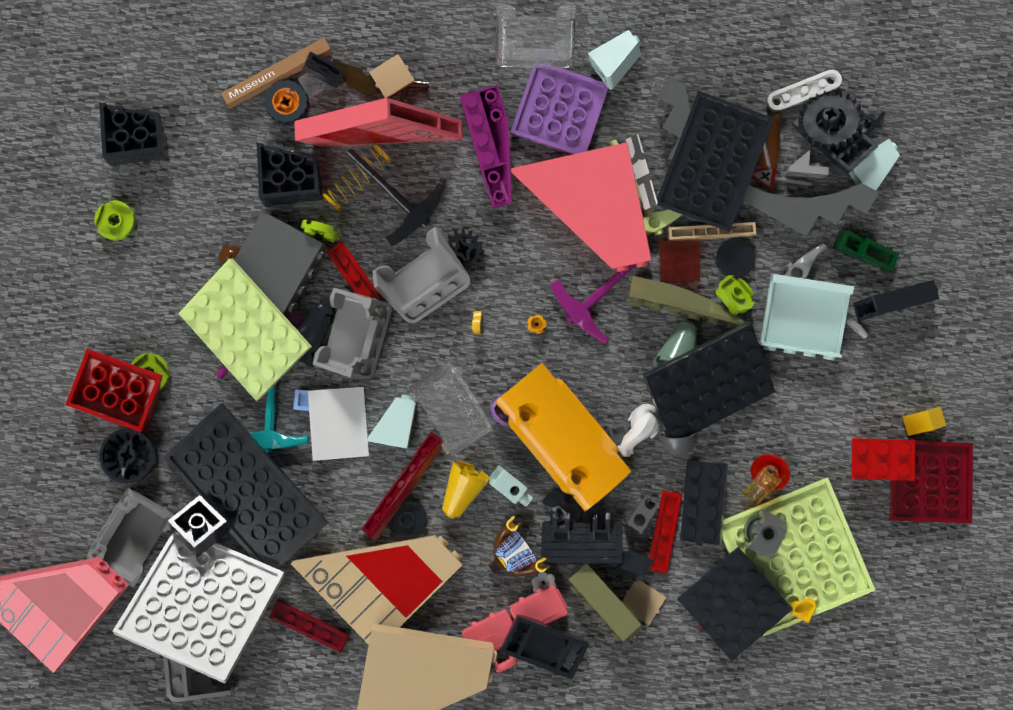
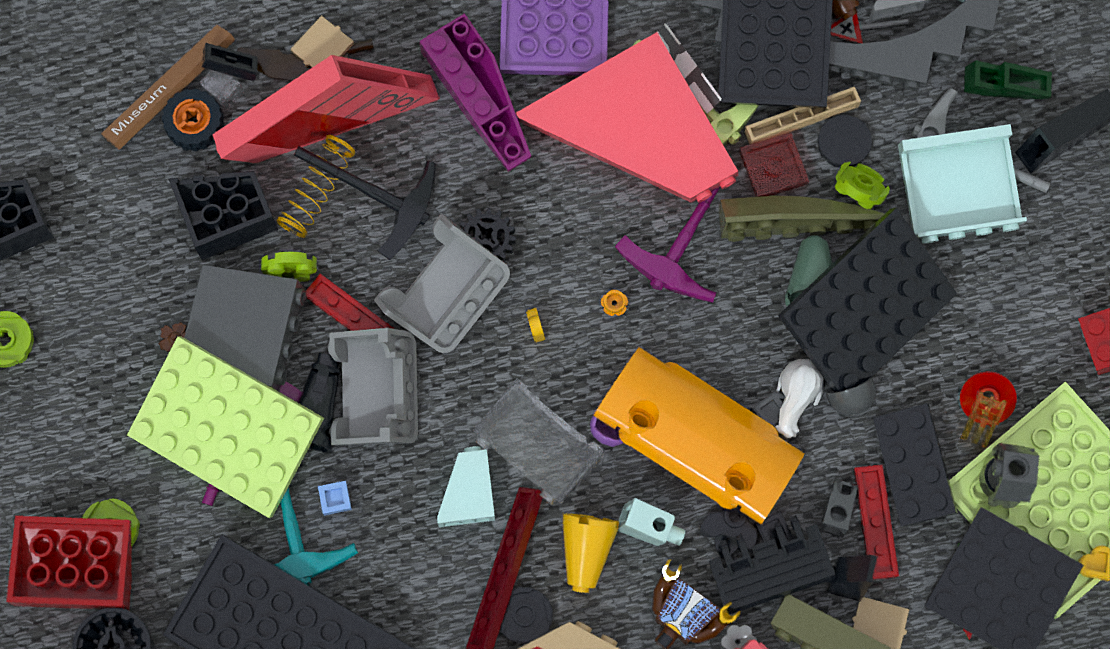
camera: 20 degrees left, 10 degrees down
(338, 423) = (389, 515): white sticker -> none

